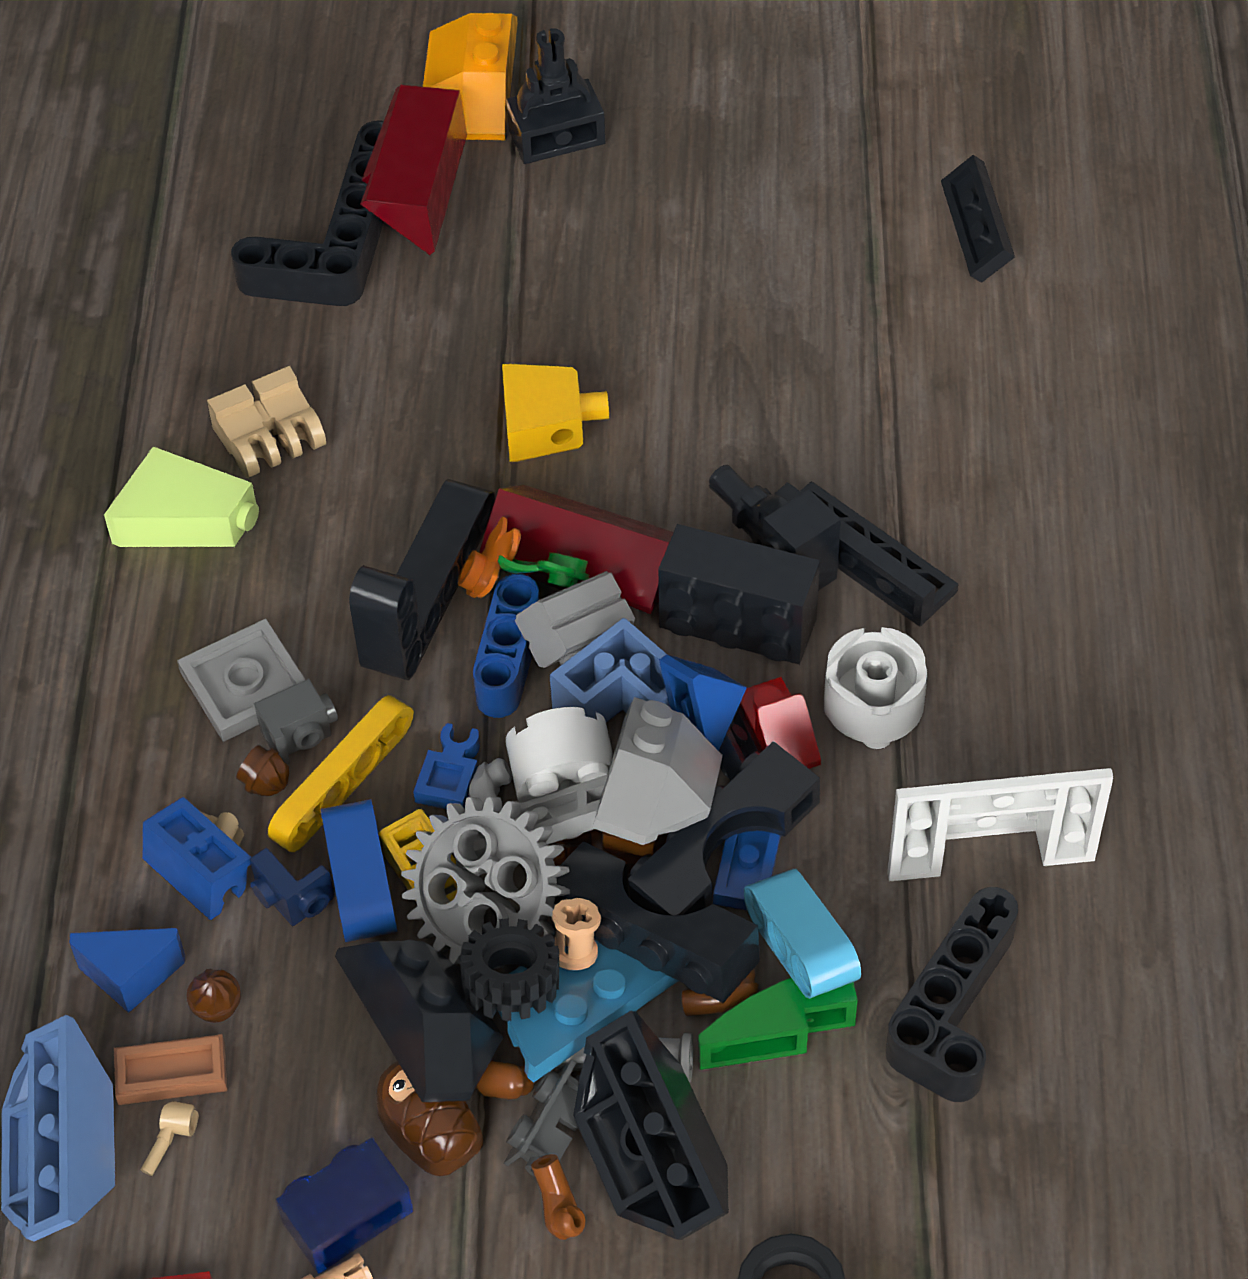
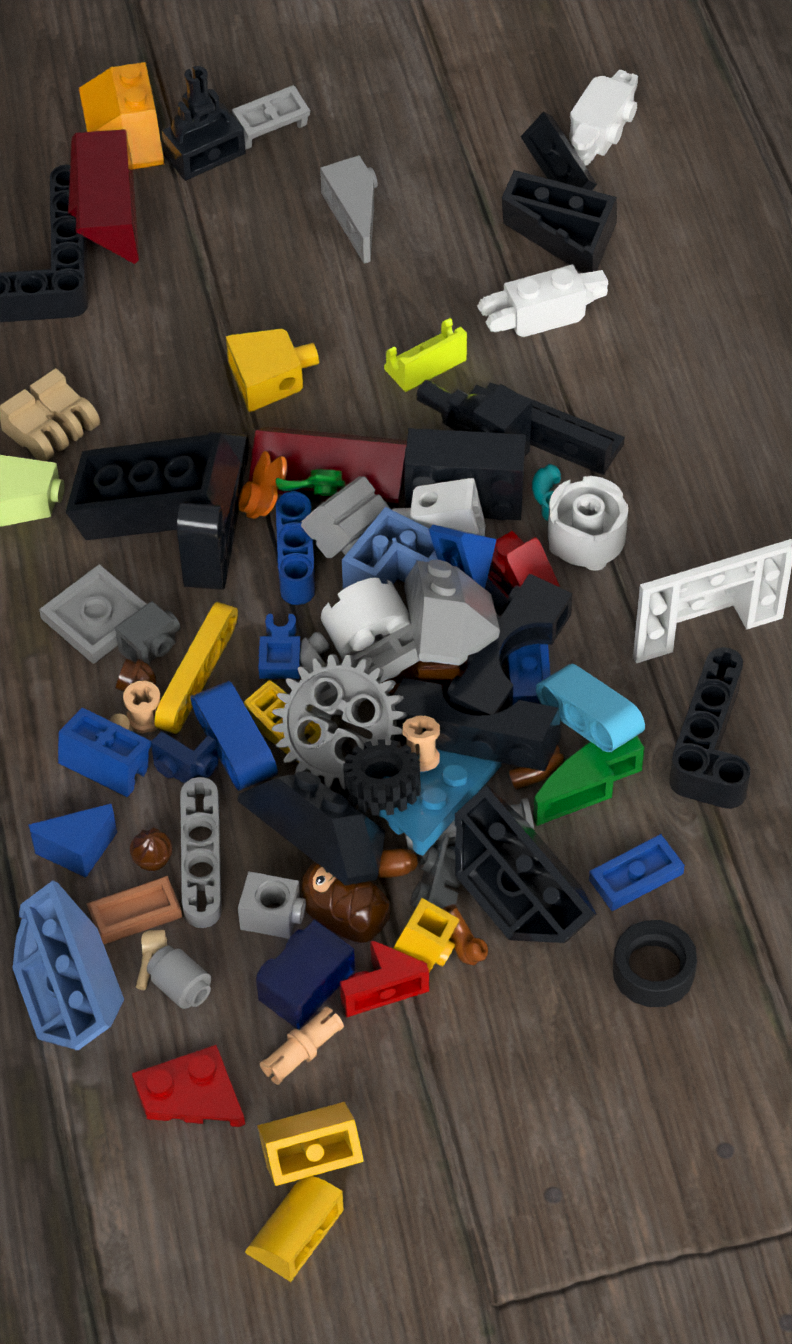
camera: 15 degrees left, 0 degrees up
(192, 1171) = (179, 977): none -> light grey brick
(266, 802) = (142, 702): none -> light nougat bush
(272, 1011) = (200, 851): none -> light grey beam
(325, 1082) = (264, 890): none -> light grey brick
(327, 528) = (142, 484): none -> black brick
(455, 1238) = (394, 979): none -> red slope
(506, 1193) = (428, 934): none -> yellow brick
(643, 100) = (271, 113): none -> light grey hinge
(703, 634) = (447, 505): none -> white torso
(711, 216) = (350, 195): none -> light grey slope
(744, 436) = (428, 358): none -> neon yellow hinge
(804, 1163) = (636, 872): none -> blue plate
(840, 620) = (541, 485): none -> teal arm
(904, 391) = (543, 300): none -> white hinge
(957, 292) = (560, 218): none -> black wedge
(1048, 171) = (602, 113): none -> white hinge

